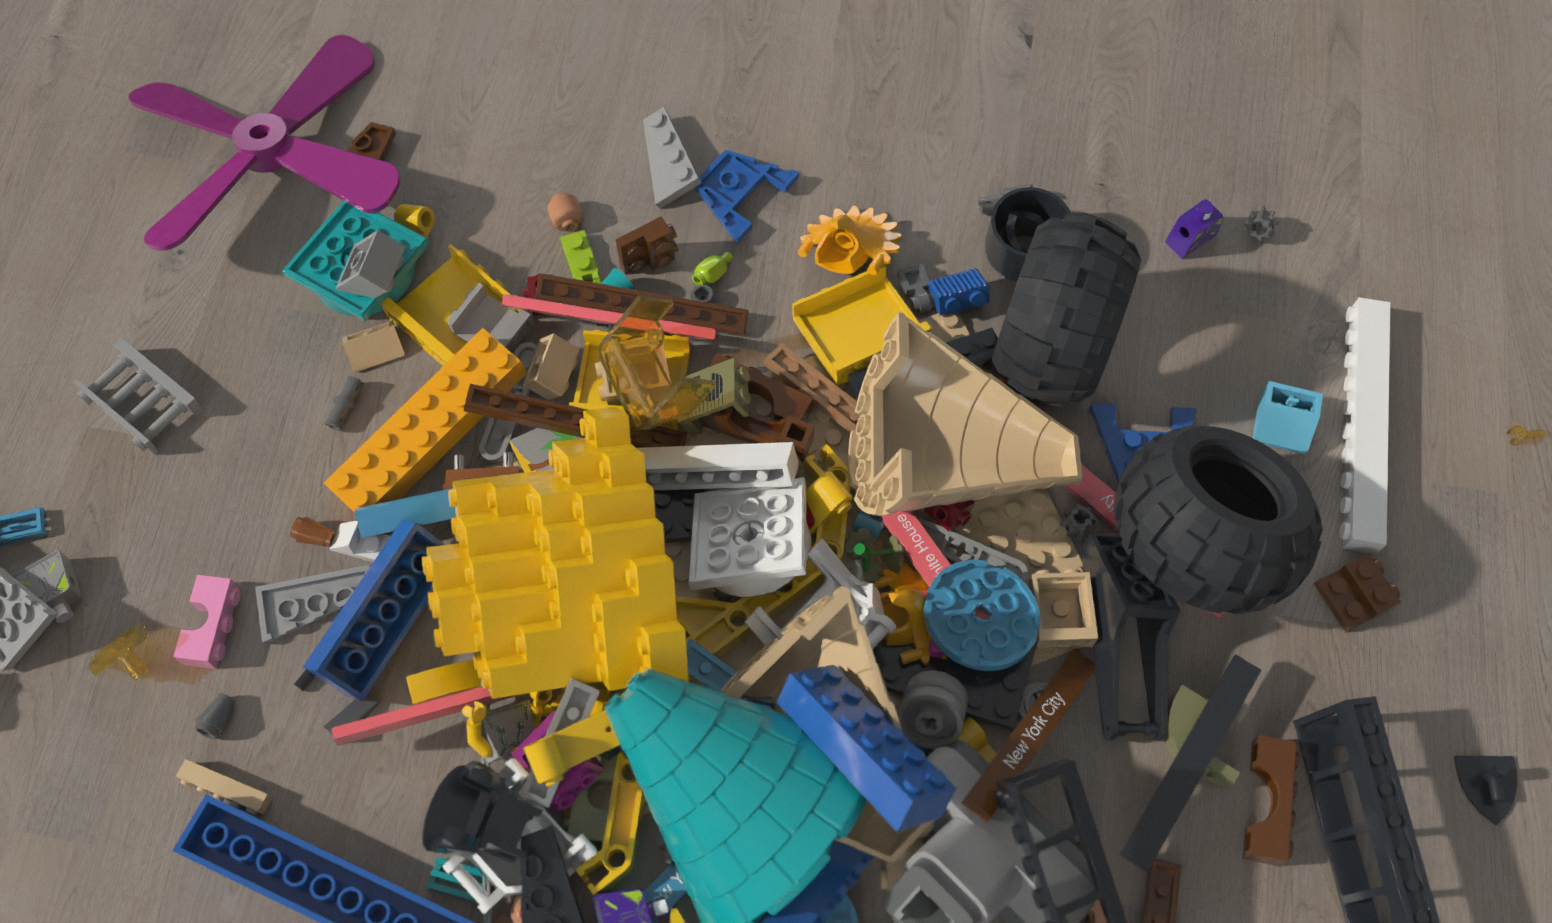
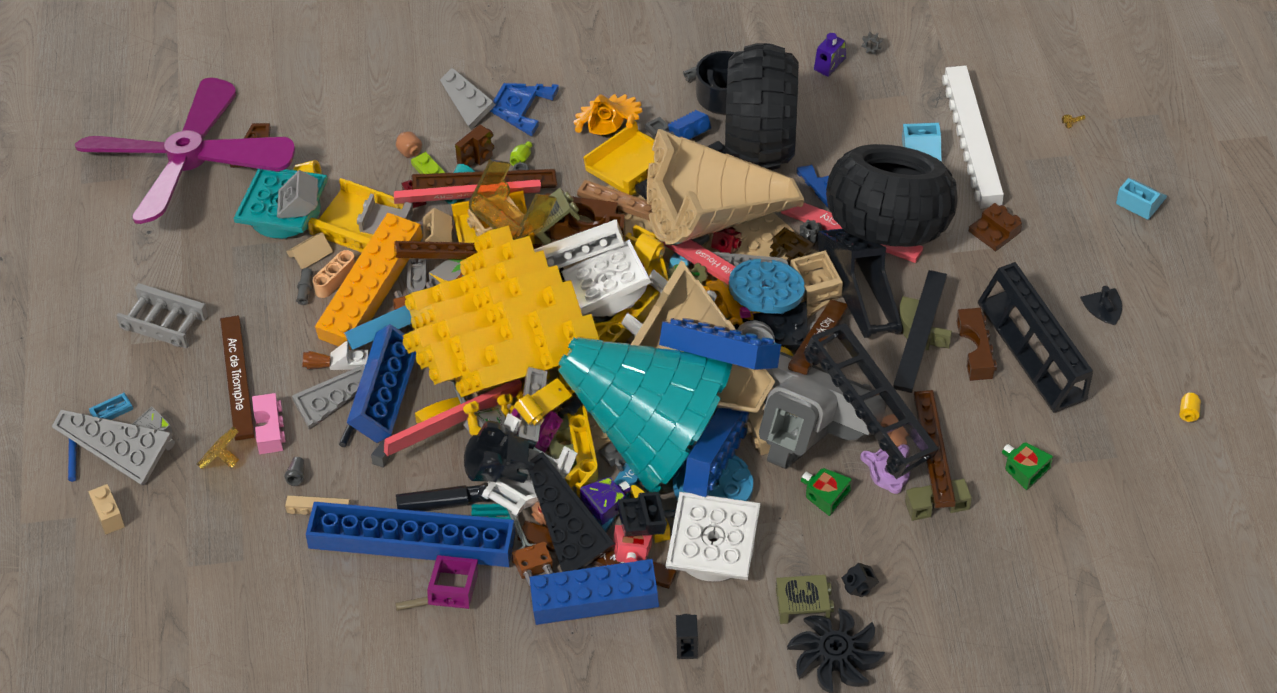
camera: 15 degrees left, 15 degrees down
(199, 527) = (237, 377): none -> reddish brown tile
(375, 829) = (441, 498): none -> black piece
(376, 395) = (333, 274): none -> light nougat beam
(1046, 537) = (794, 243): none -> dark brown plate

